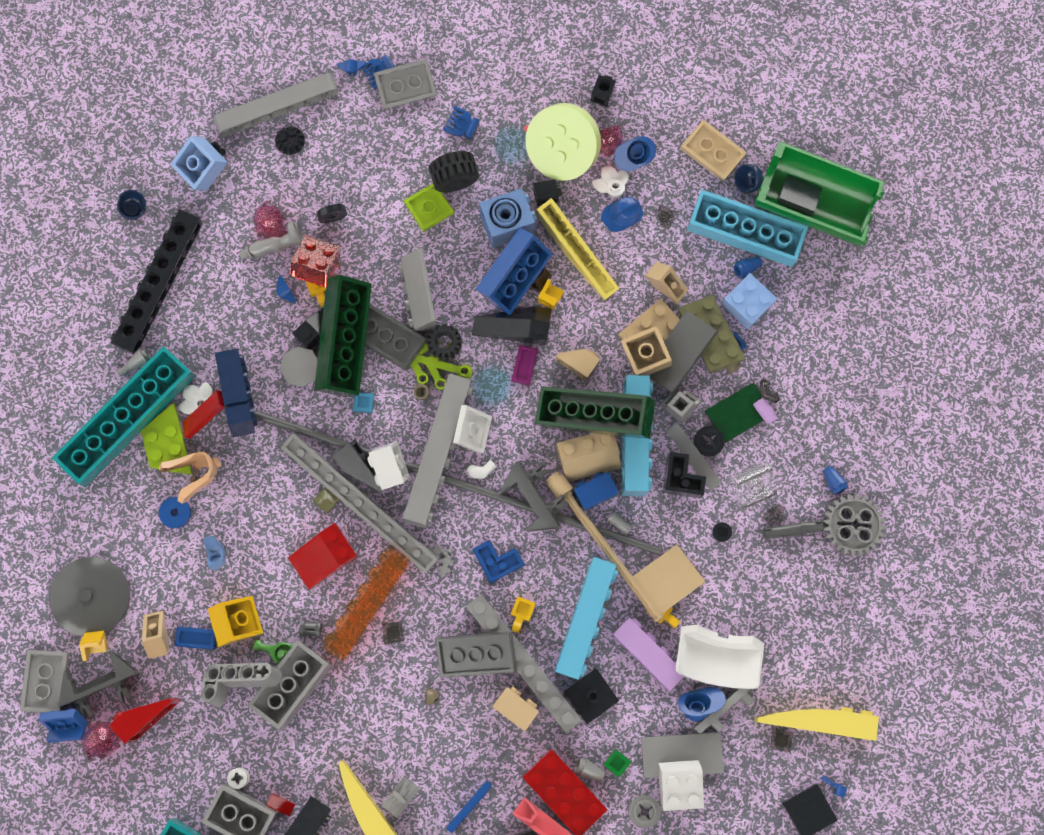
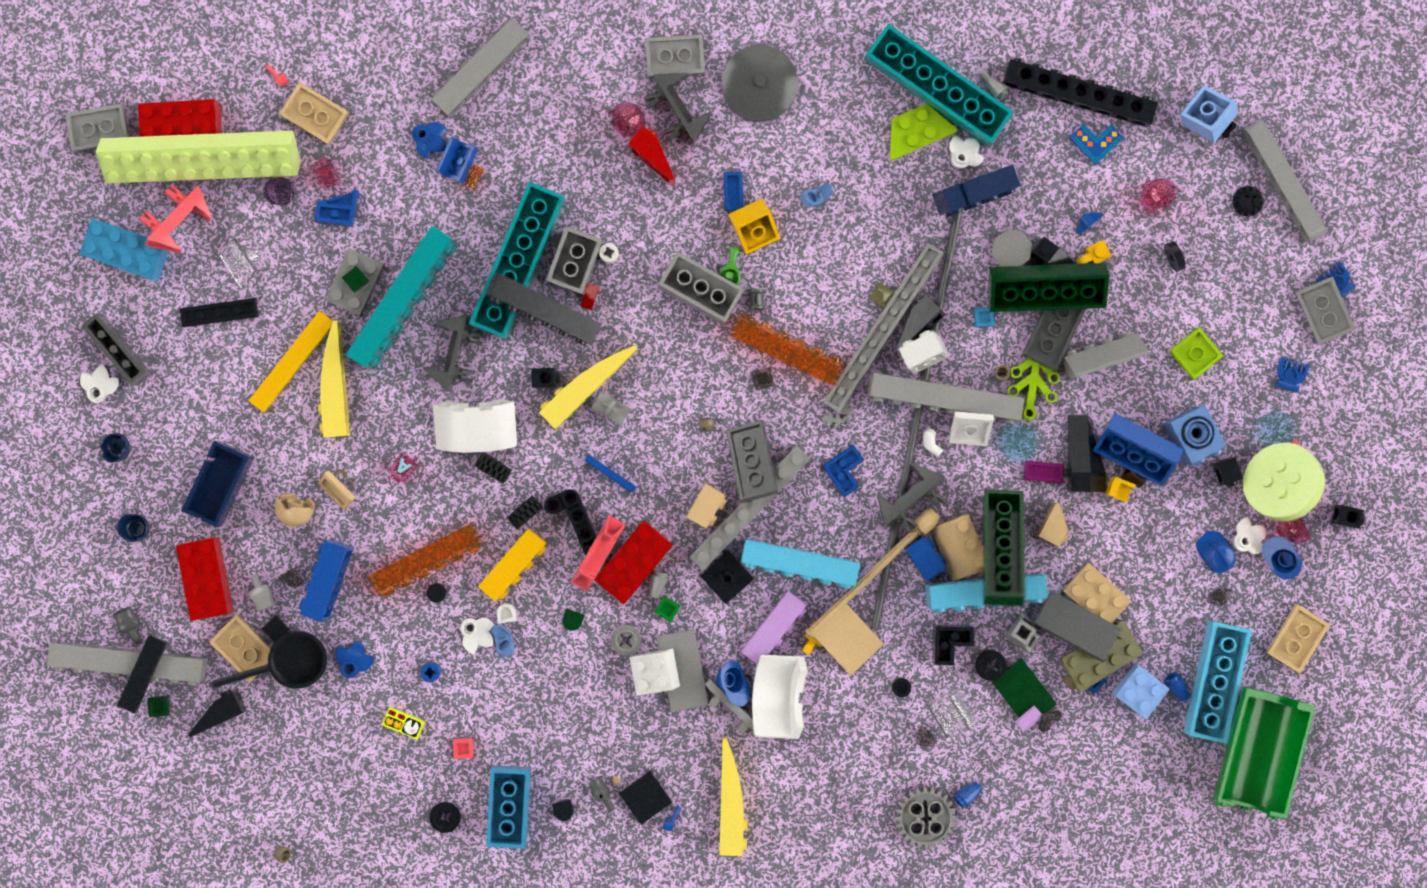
camera: 90 degrees right, 10 degrees up
(63, 725) = (636, 82): blue bracket -> none
(93, 643) = (716, 95): yellow panel -> none
(131, 204) = (1156, 53): dark blue hair -> none
(155, 635) = (731, 152): tan slope -> none
(180, 519) = (859, 150): blue piece -> none
(198, 461) = (904, 164): light nougat piece -> none
(203, 414) = (950, 162): red tile -> none
(213, 274) = (1096, 147): none -> blue tile
(221, 677) = (700, 223): light grey beam -> none
(273, 244) = (1134, 203): light grey piece -> none
(315, 260) = (1122, 247): clear red brick -> none
(322, 556) = (827, 300): red slope -> none
(351, 66) = (1338, 252): blue piece -> none
(444, 331) = (1059, 377): black tyre -> none
(453, 171) = (1236, 374): black tyre -> none
(522, 611) = (799, 500): yellow plate -> none
(575, 248) = (1171, 508): light yellow slope -> none
(619, 522) = (897, 585): light grey pin -> none
(646, 352) = (1071, 592): tan brick -> none
(667, 281) = (1149, 605): tan slope -> none
(695, 458) = (972, 653): light grey sticker -> none
(748, 178) = (1272, 678): dark blue hair -> none
(781, 740) = (708, 764): clear smoke plate -> none
(793, 529) = (913, 757): dark grey pin -> none
(799, 195) = (1260, 732): black tile -> none

